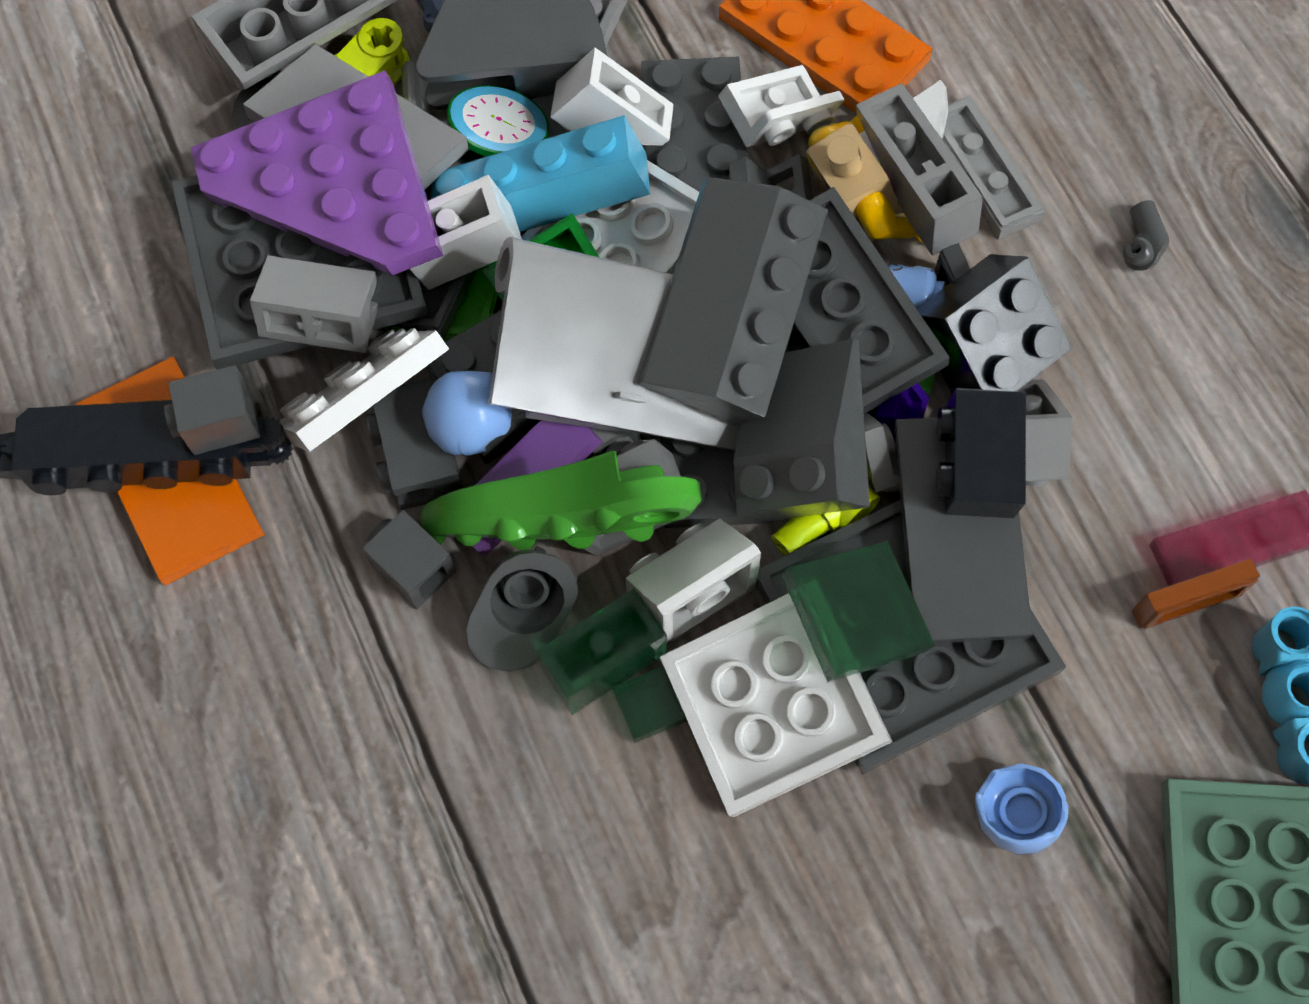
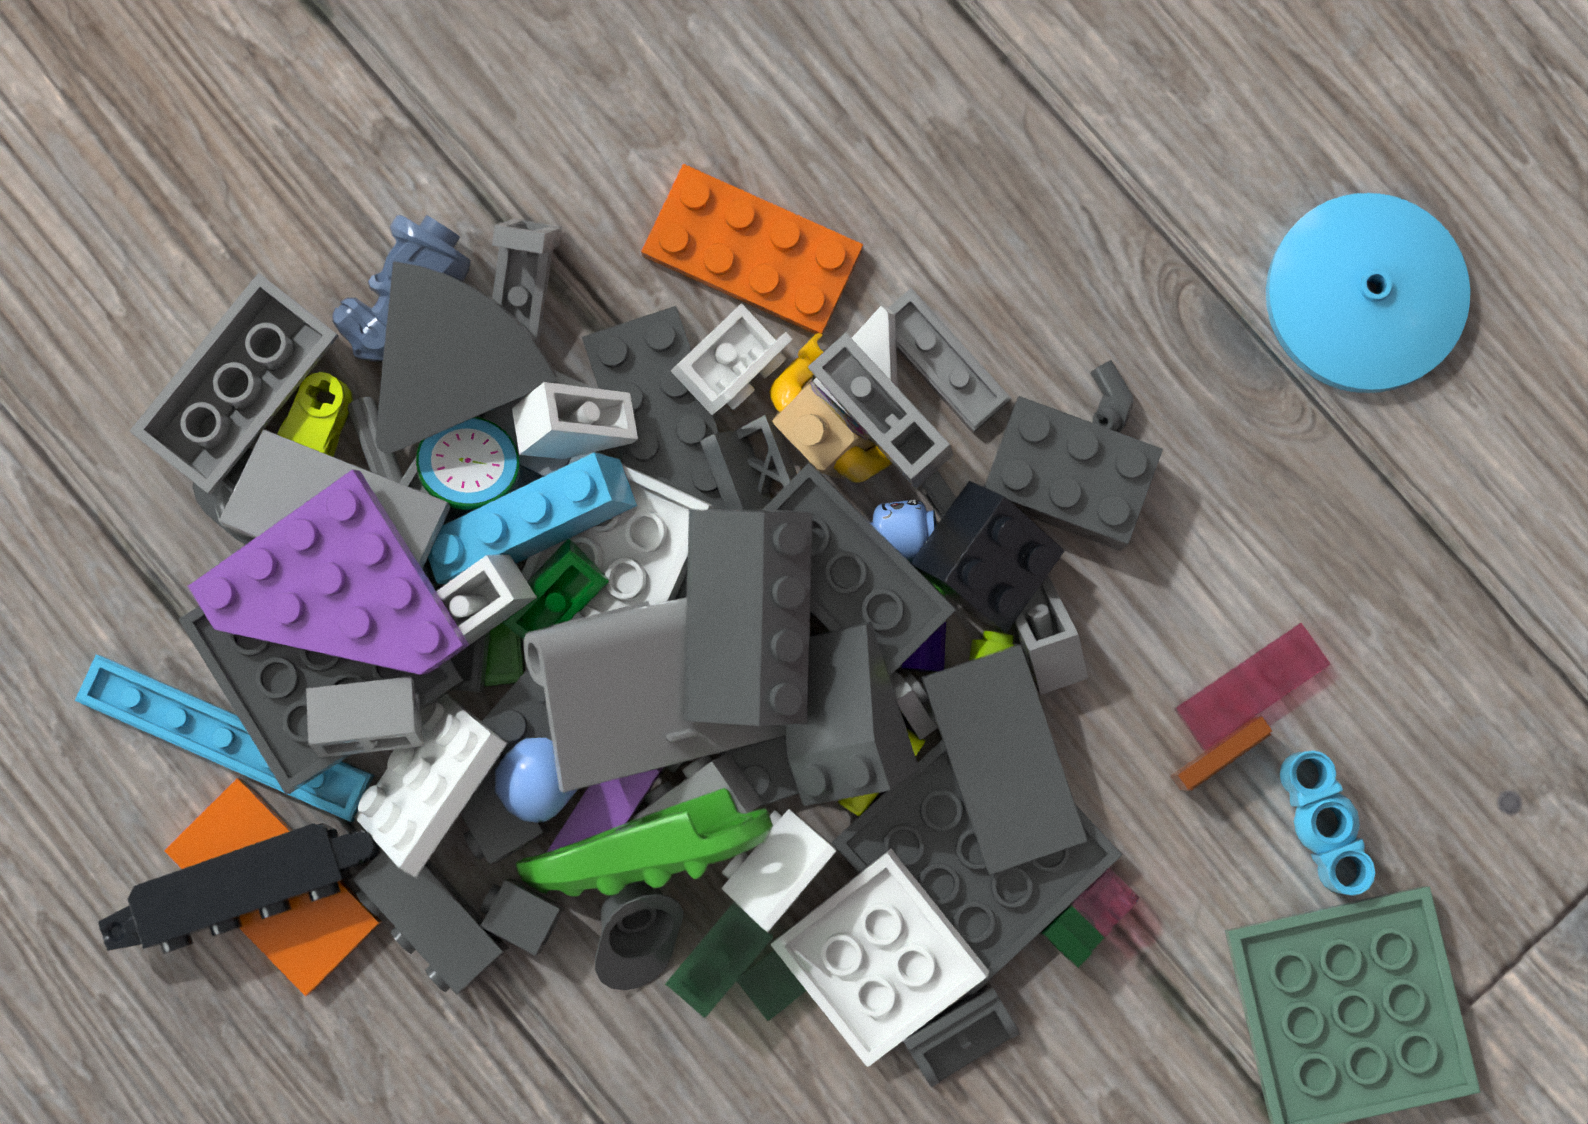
camera: 10 degrees left, 15 degrees up
(162, 309) = (208, 733): none -> medium azure tile
(212, 410) = (308, 851): dark grey brick -> none
(313, 535) = (432, 920): none -> dark grey brick
(842, 812) = (961, 1035): none -> dark grey hinge
(857, 610) = (932, 871): clear green tile -> none
(983, 453) = (1006, 699): black brick -> none
(1013, 725) = (1090, 917): none -> leg
(1021, 808) = (1110, 992): light blue hair -> none
(1102, 284) = (1073, 473): none -> dark grey brick

